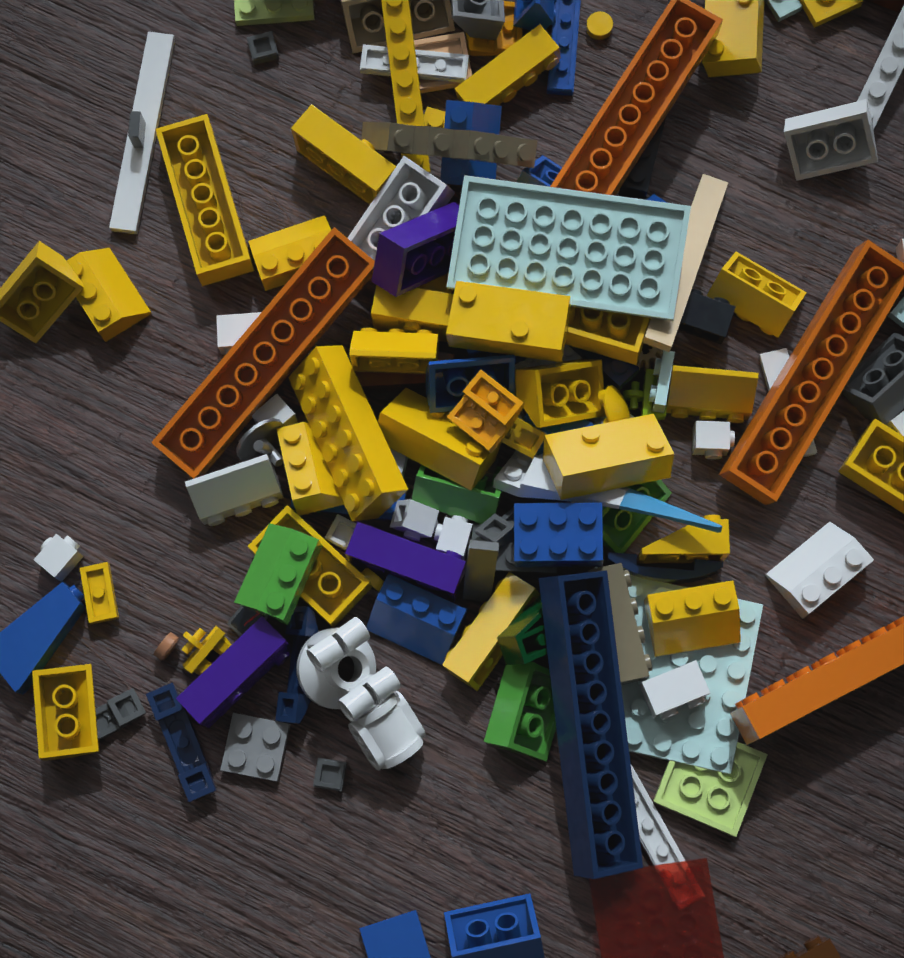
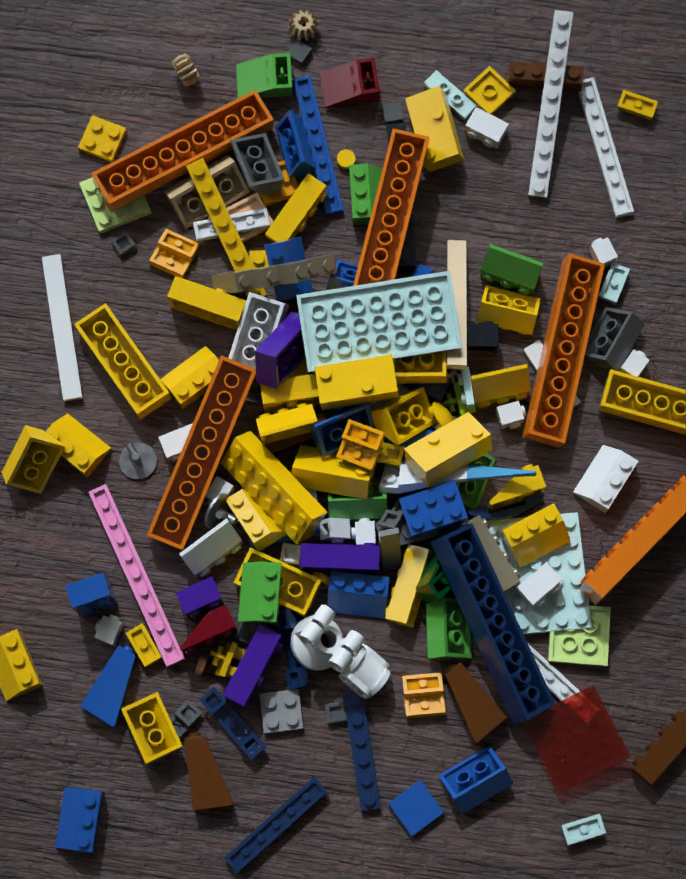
camera: 20 degrees left, 0 degrees up
(47, 500) = (91, 595): none -> blue brick
(118, 802) = (205, 777): none -> reddish brown slope
(123, 496) = (136, 575): none -> bright pink plate
(136, 129) = (59, 326): dark grey tile -> none
(180, 340) = (137, 460): none -> flat silver shield
(191, 905) = (275, 824): none -> dark blue plate
(195, 553) = (200, 598): none -> dark purple brick
(195, 600) = (214, 626): none -> dark red slope
(325, 80) = (174, 253): none -> light orange slope
(347, 842) = (361, 751): none -> dark blue plate
(461, 791) = (423, 695): none -> light orange slope
(528, 829) = (475, 705): none -> reddish brown slope
(609, 63) = (363, 188): none -> bright green slope
(778, 239) = (511, 269): none -> bright green slope
(805, 39) = (486, 128): none -> white brick
(831, 140) = (524, 192): white slope -> none

